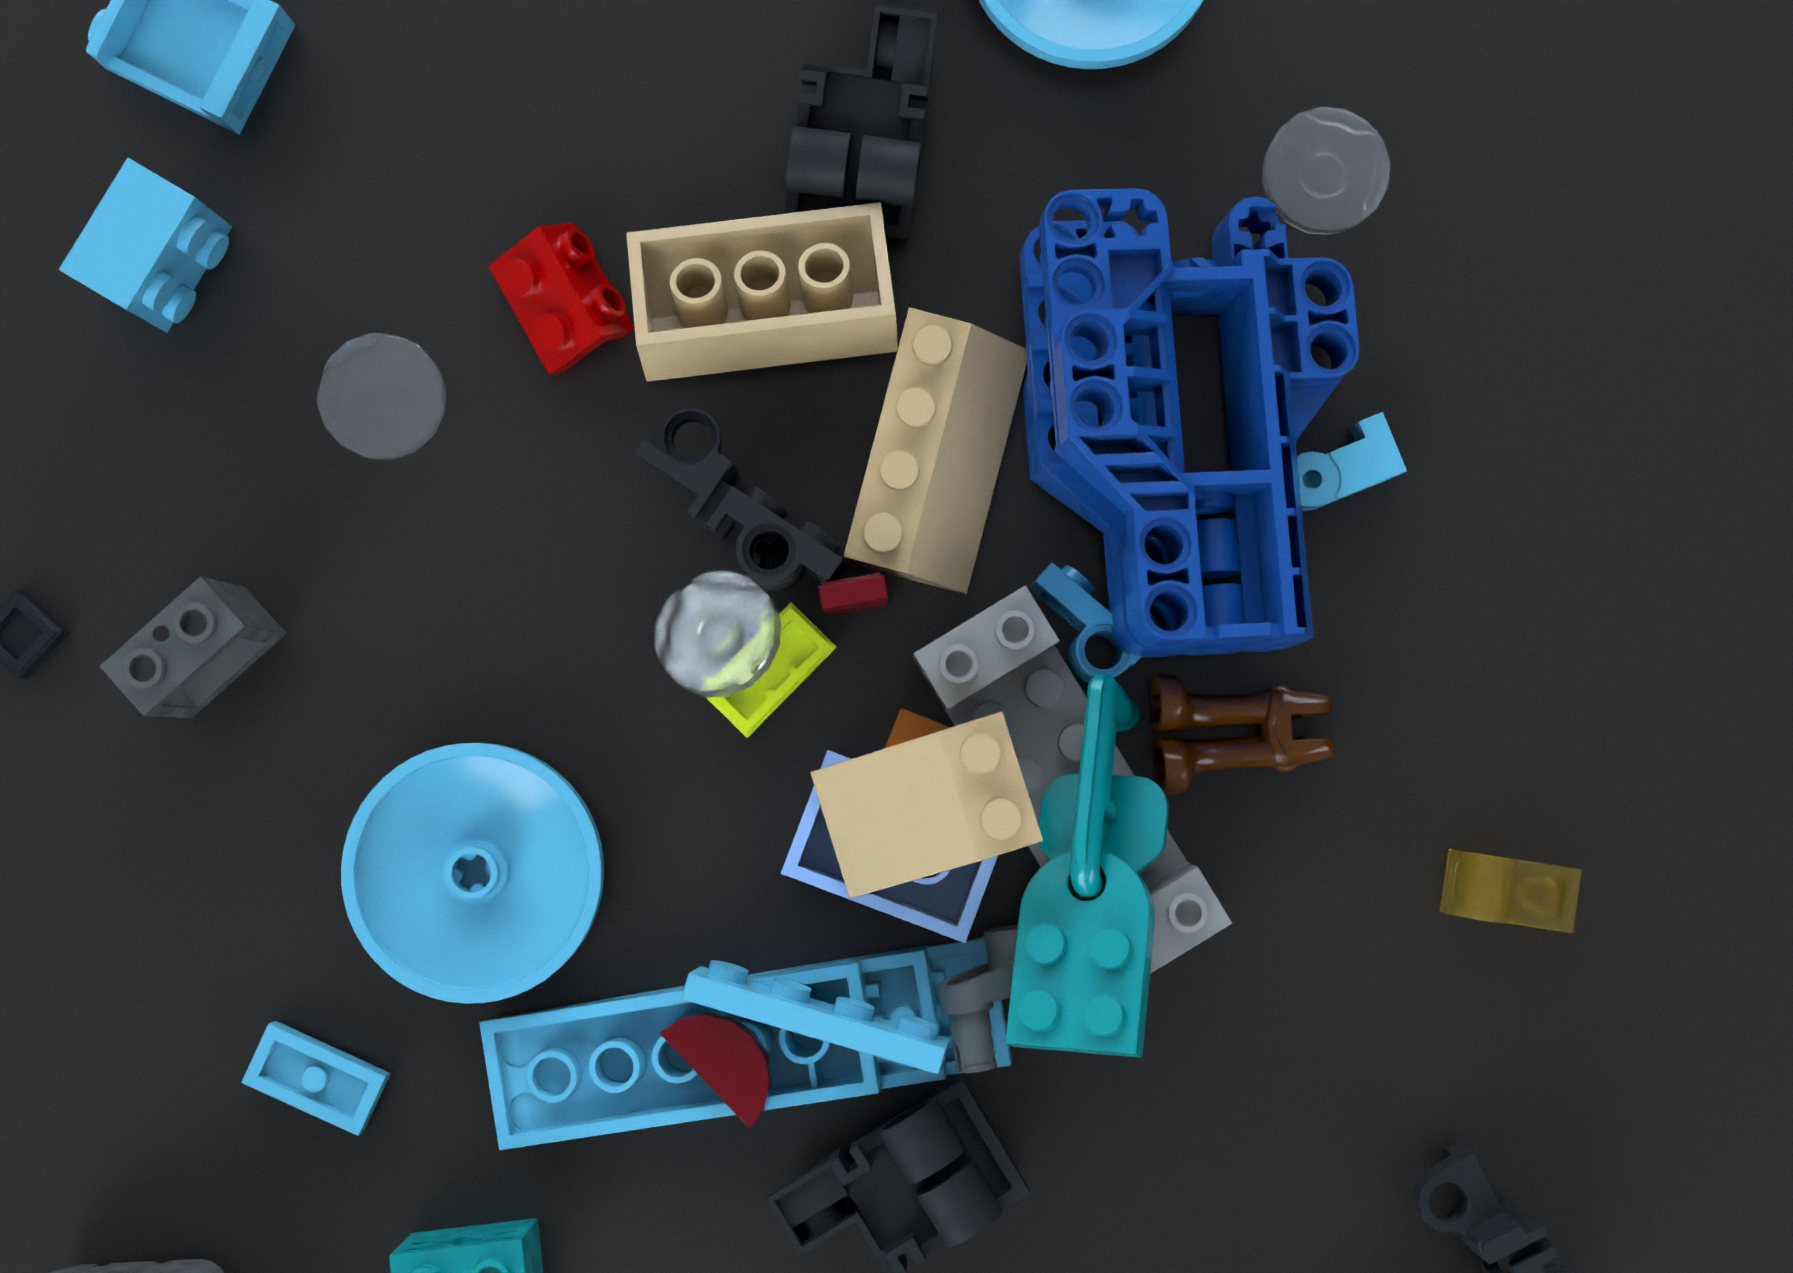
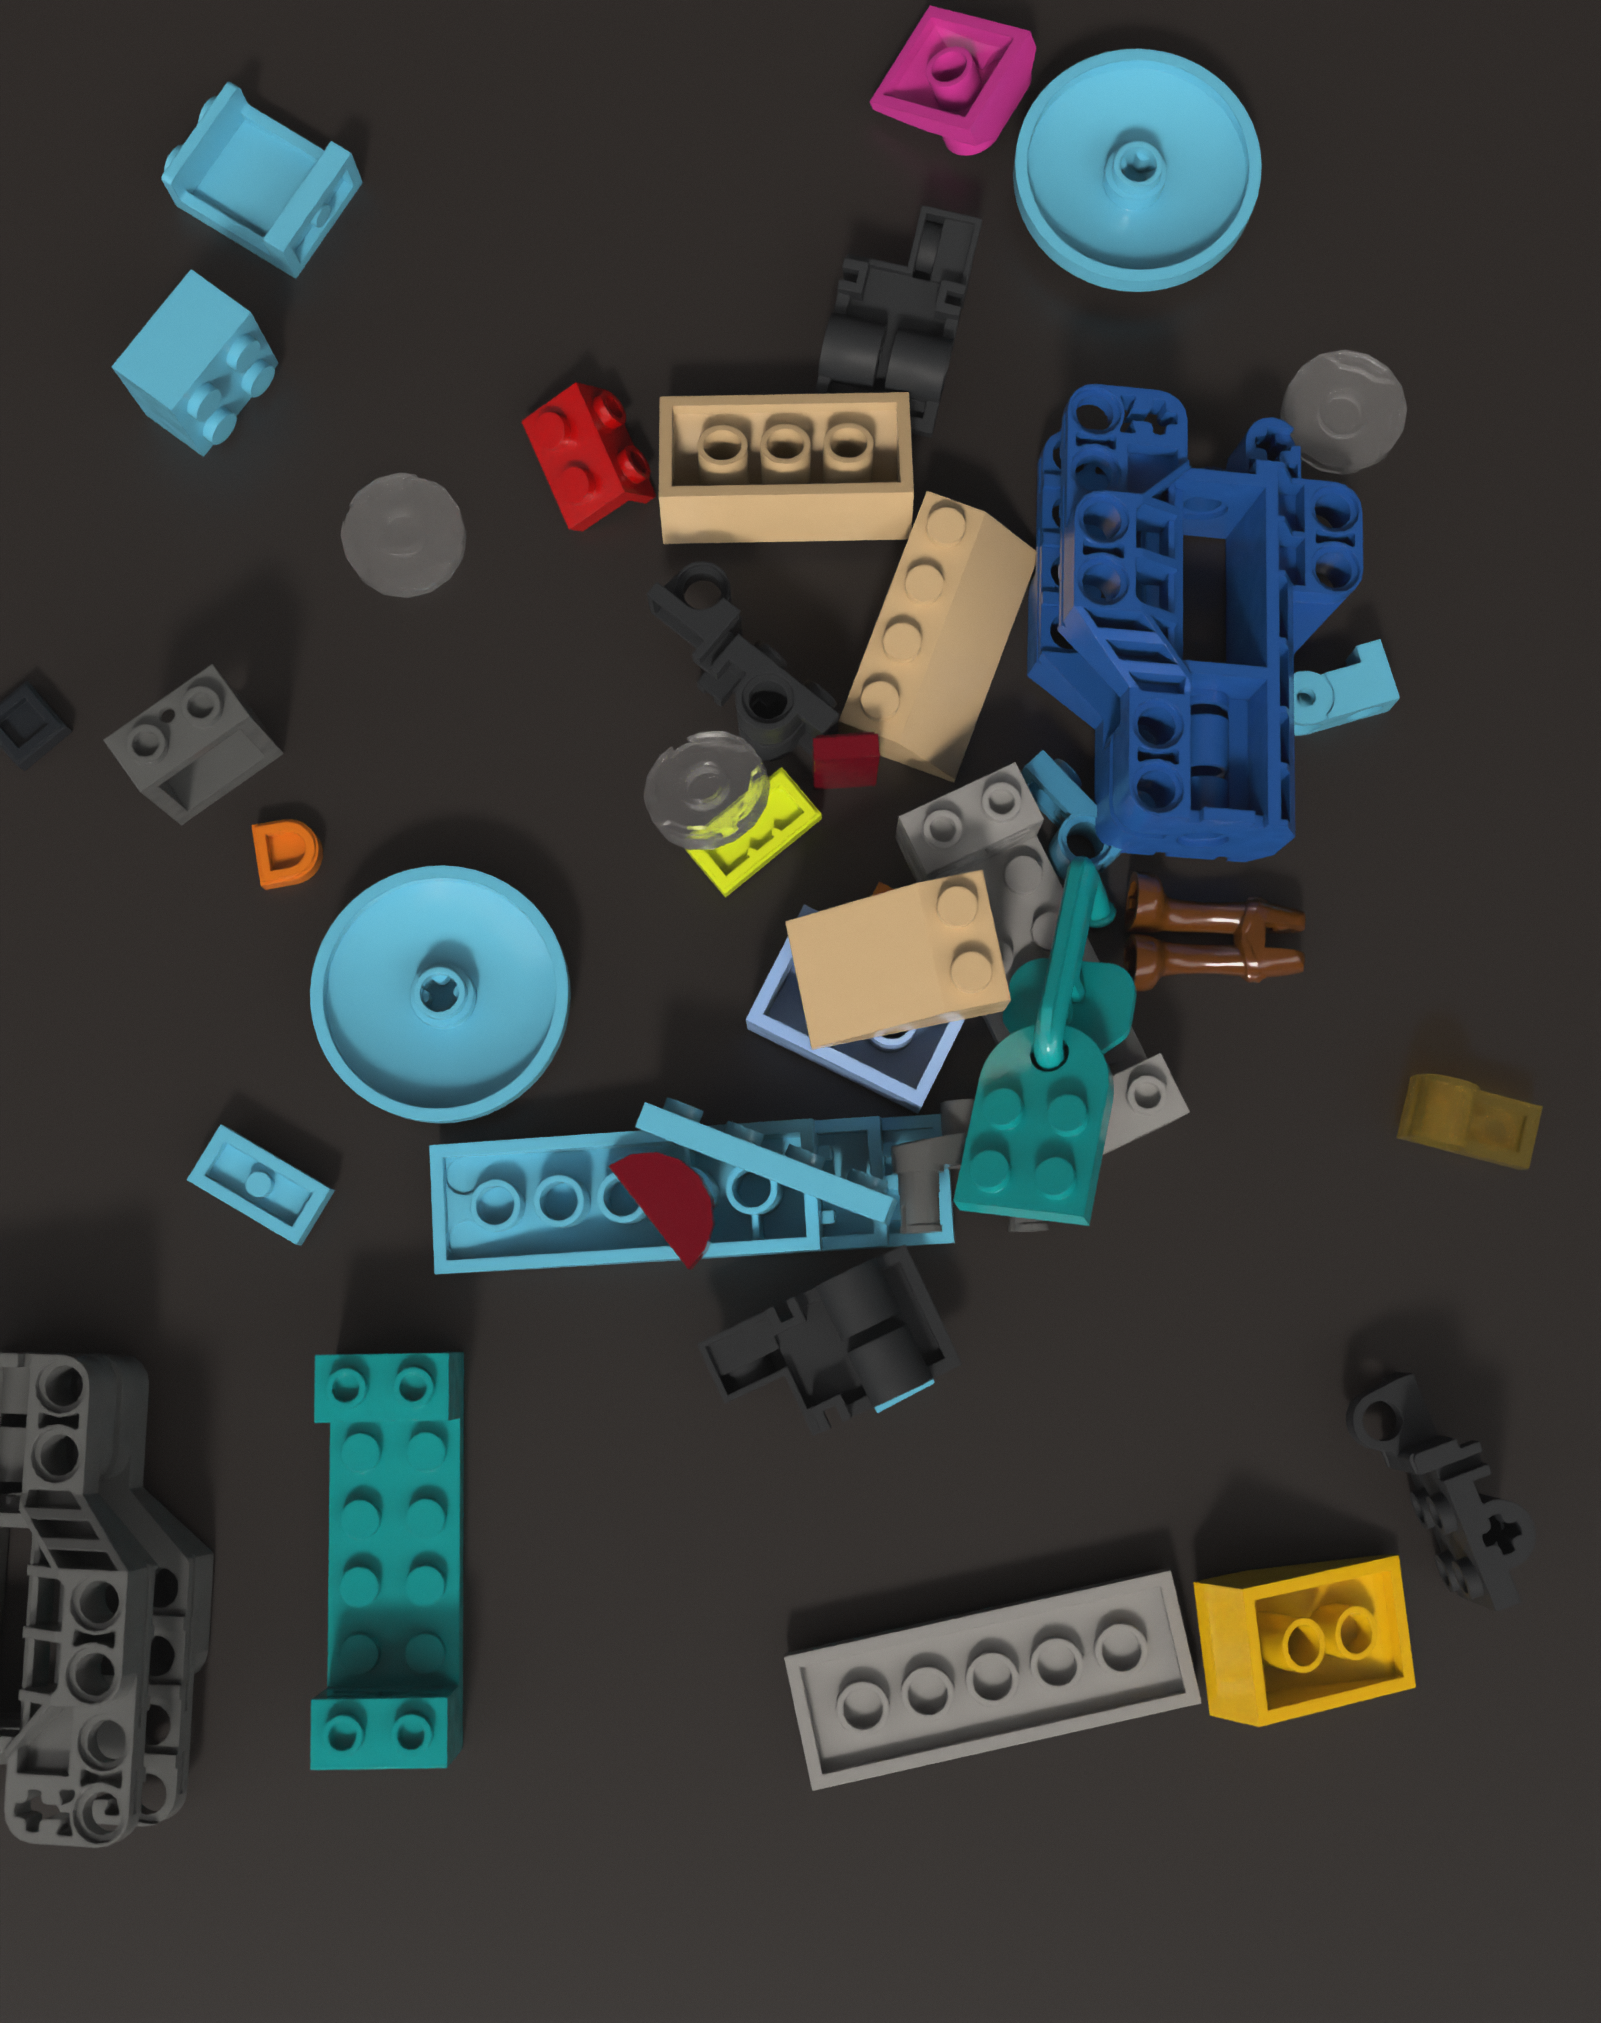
camera: 10 degrees right, 5 degrees down
(301, 737) = (286, 852): none -> orange tile

